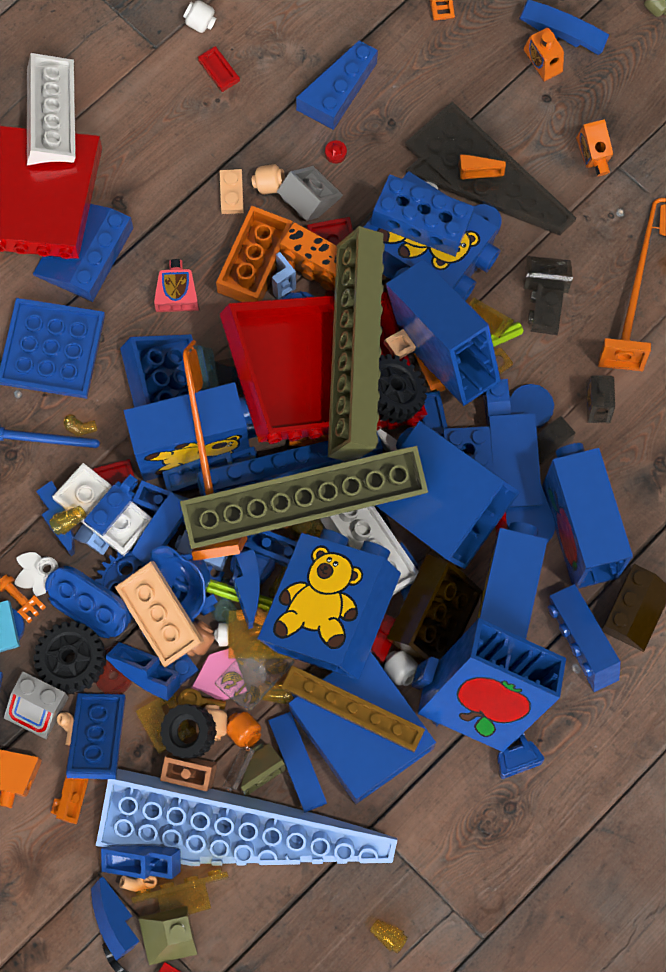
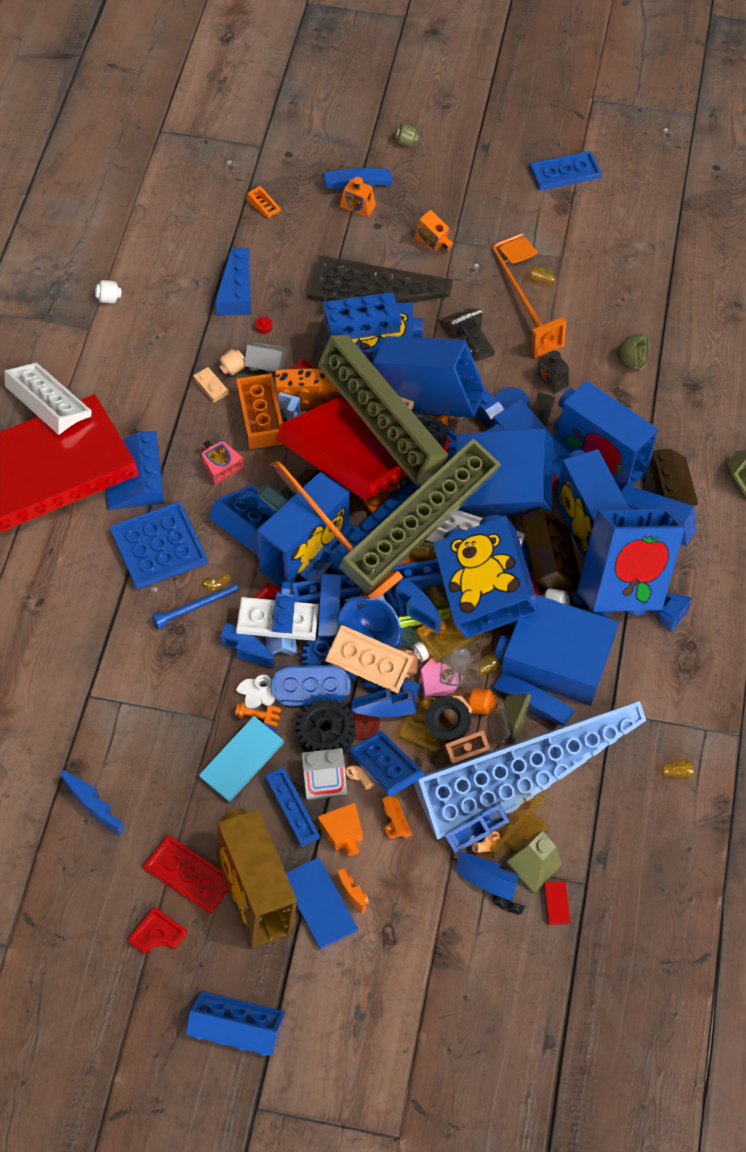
camera: 35 degrees left, 15 degrees down
(66, 520) = (259, 636): clear yellow cone -> none
(218, 69) = (144, 317): red tile -> none
(353, 708) = (550, 631): pearl gold plate -> none
(425, 673) = (577, 586): blue tile -> none
(479, 167) = (367, 281): orange slope -> none

